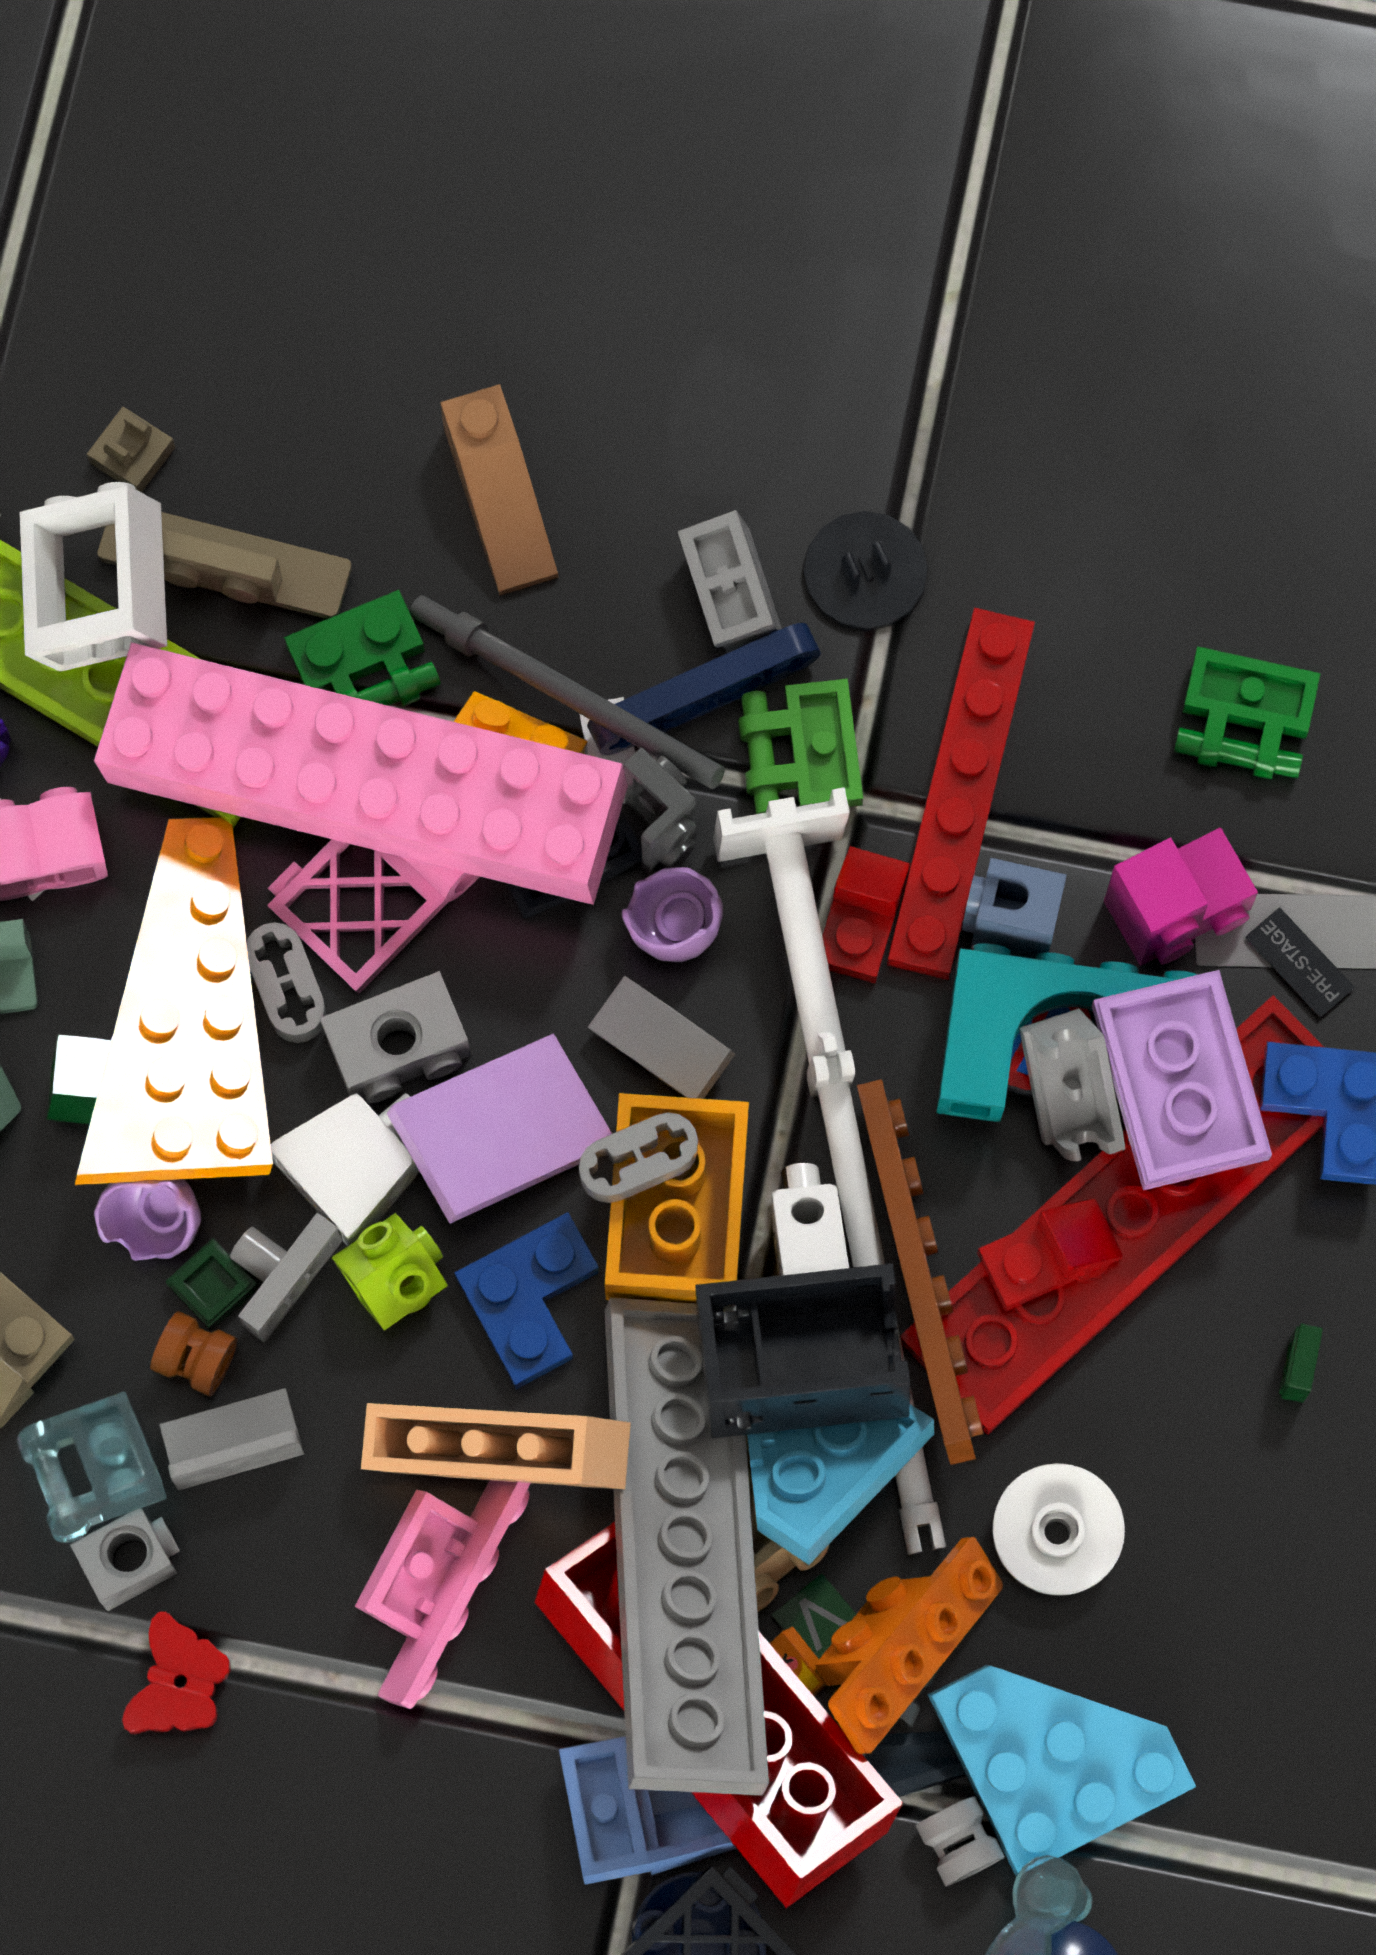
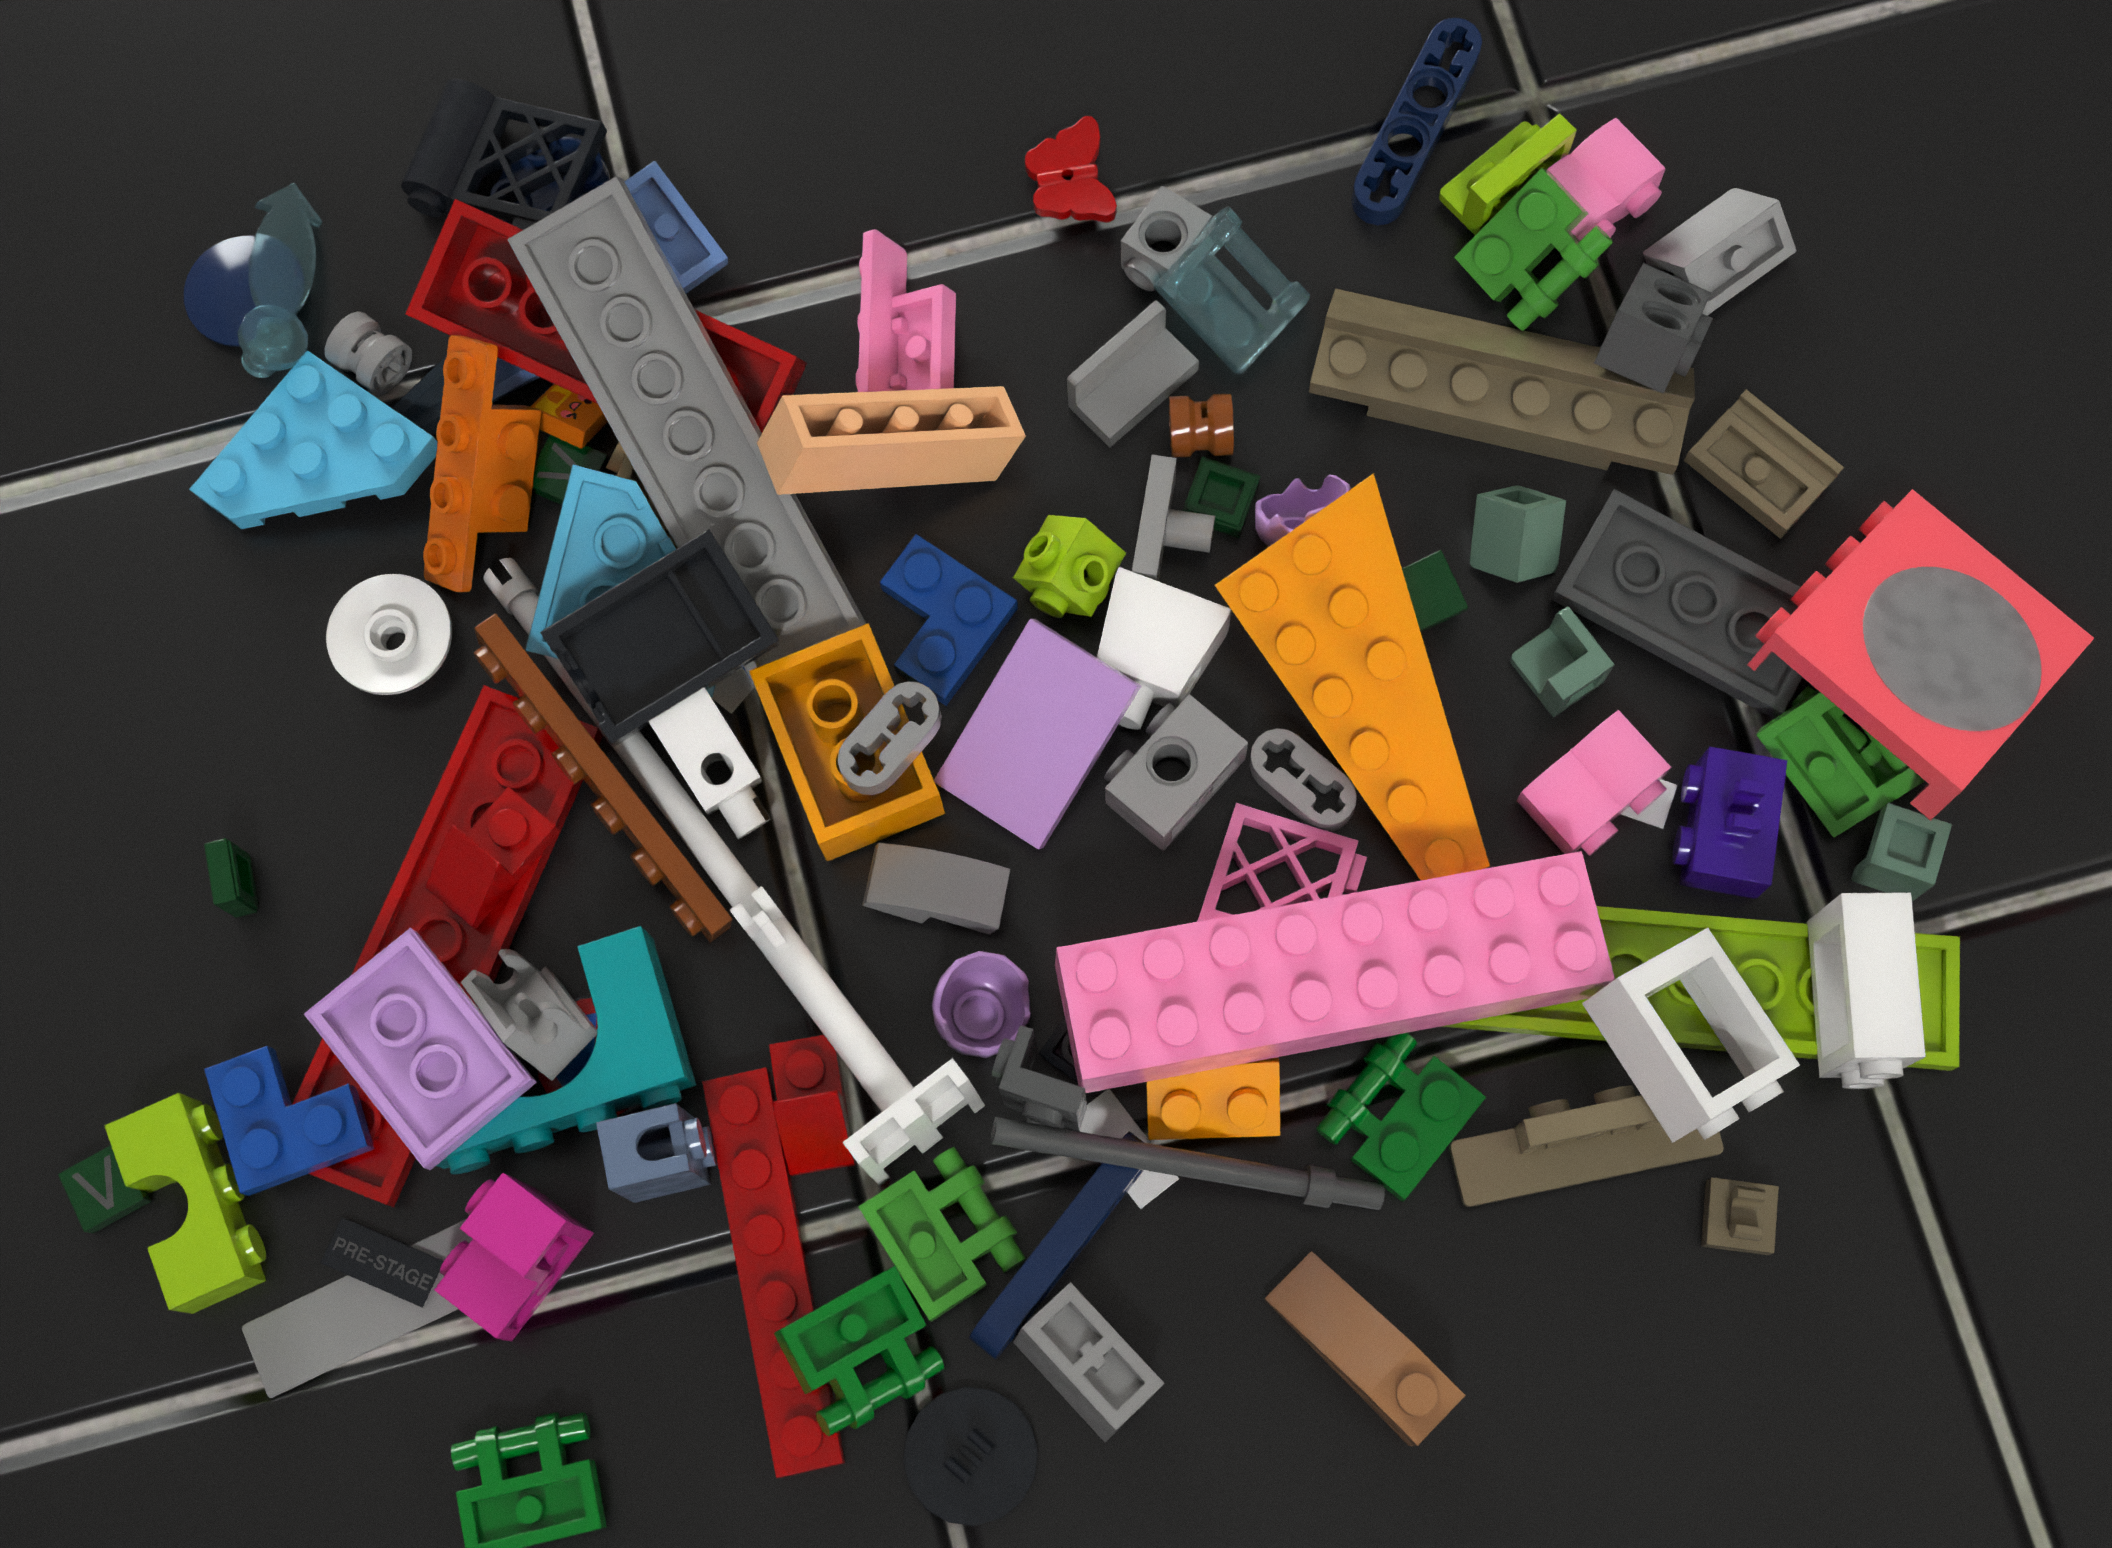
camera: 160 degrees right, 0 degrees up
(919, 696) = (850, 1331): none -> green plate

